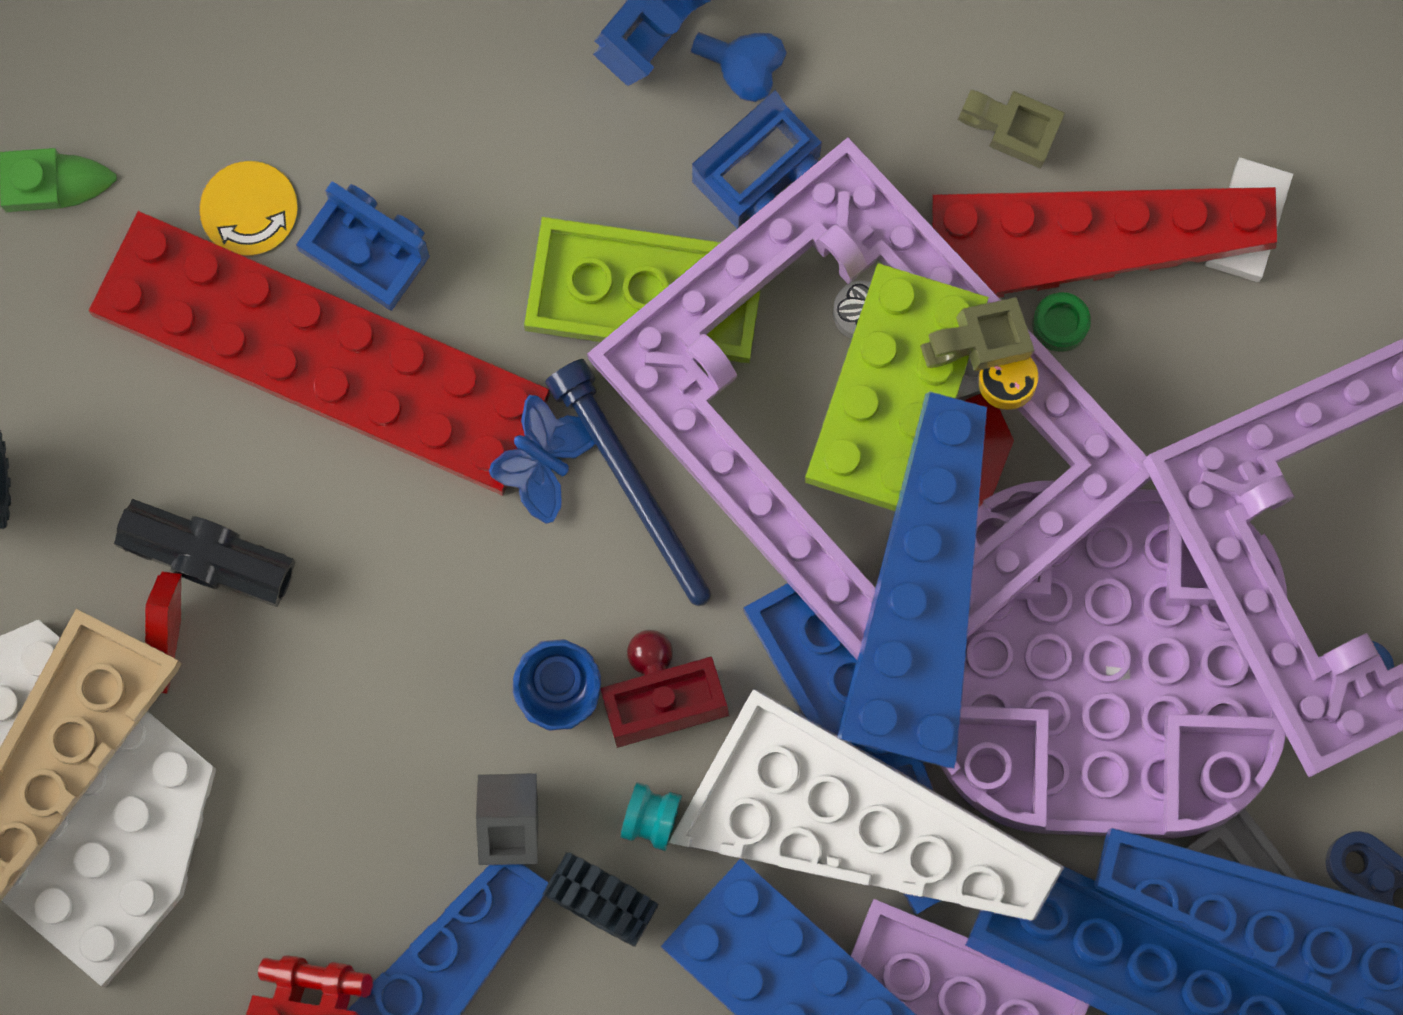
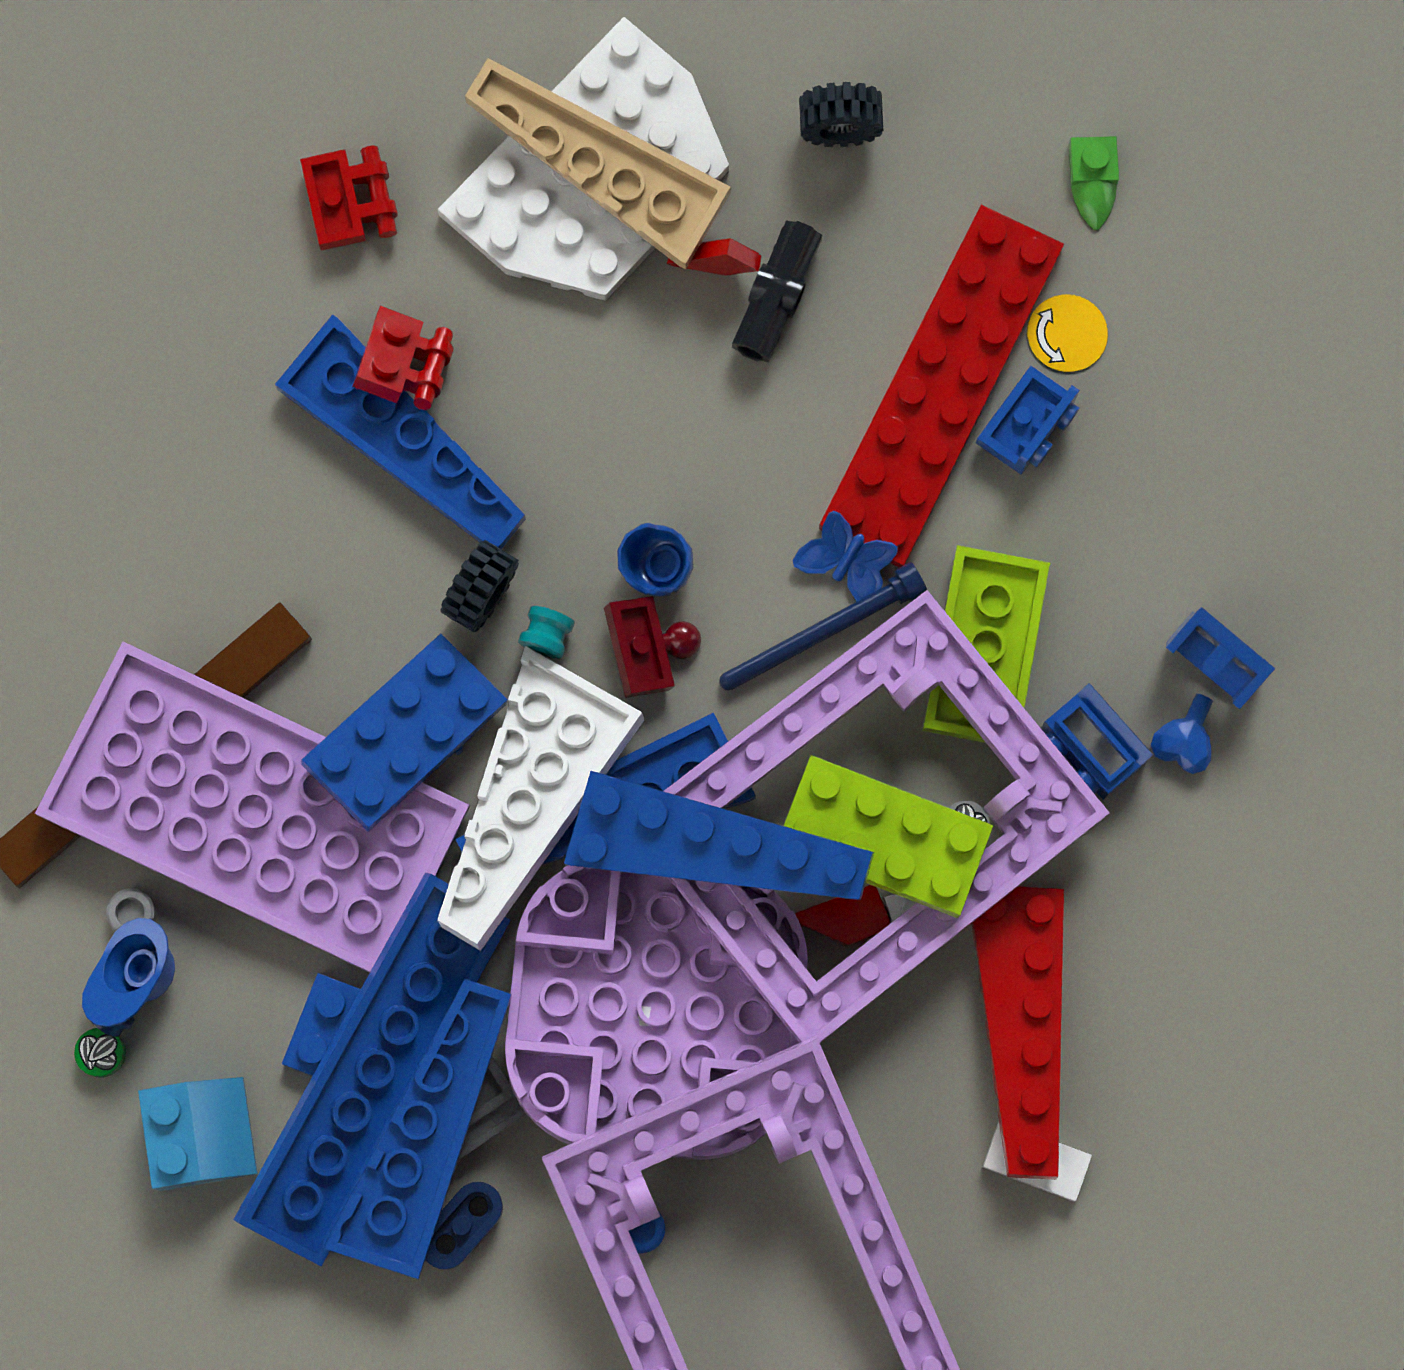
camera: 90 degrees right, 0 degrees up
(507, 819) = (548, 516): dark grey brick -> none
(987, 333) = (922, 908): olive plate -> none
(1009, 384) = (890, 928): yellow tile -> none
(1021, 127) = (1121, 967): olive plate -> none
(1061, 321) = (950, 993): green tile -> none

